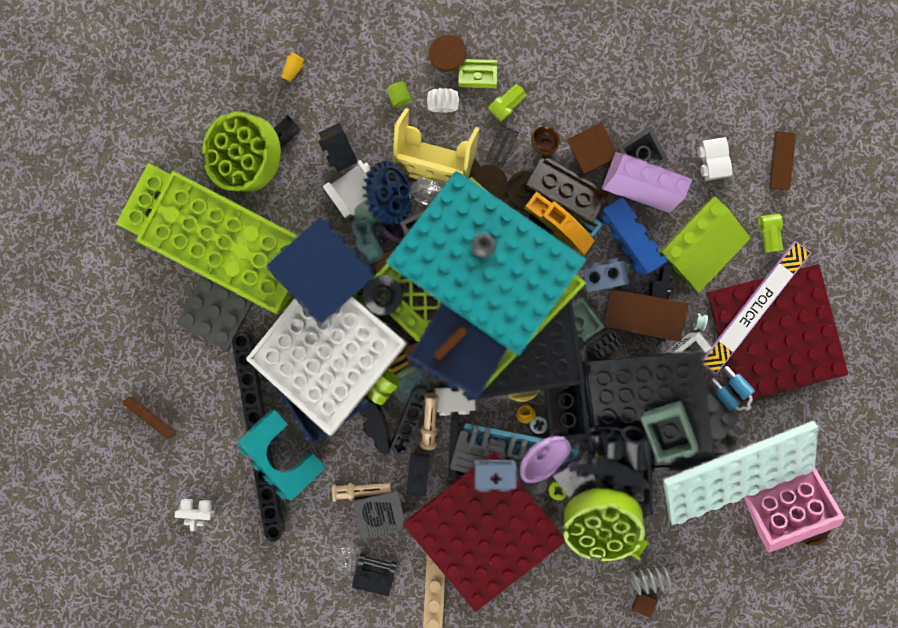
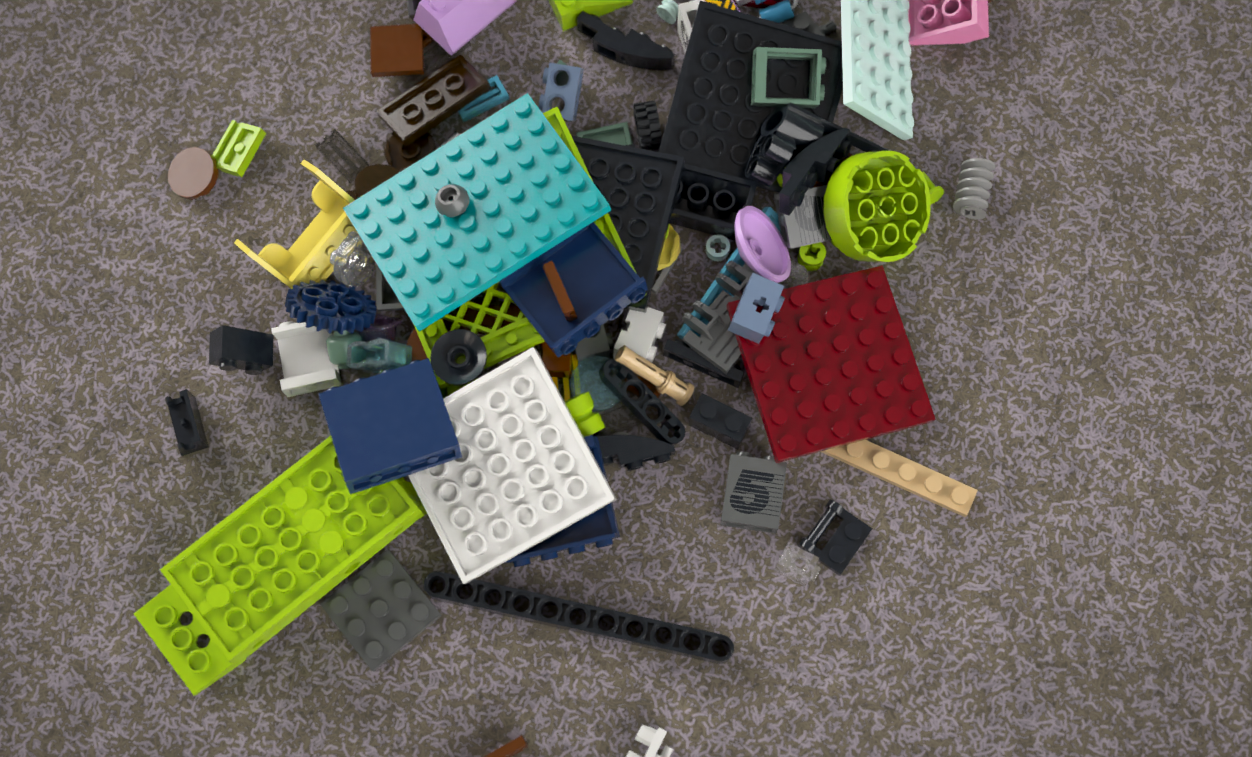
camera: 65 degrees left, 15 degrees down
(241, 152) = (155, 481): lime brick -> none
(255, 444) = (589, 615): teal arch -> none
(292, 66) = (107, 371): yellow cone -> none
(350, 488) = (708, 520): tan pin -> none
(399, 94) = (213, 251): lime piece -> none
(442, 100) = (248, 199): white gear -> none
(504, 105) = (292, 130): lime piece -> none
(528, 411) = (696, 256): yellow plate -> none
(545, 140) = (360, 100): reddish brown hair -> none
(561, 222) = (462, 117): light orange slope -> none
(632, 237) = (529, 44): blue wedge -> none
(644, 604) = (1003, 208): reddish brown tile -> none
(646, 315) = (631, 62): reddish brown tile -> none

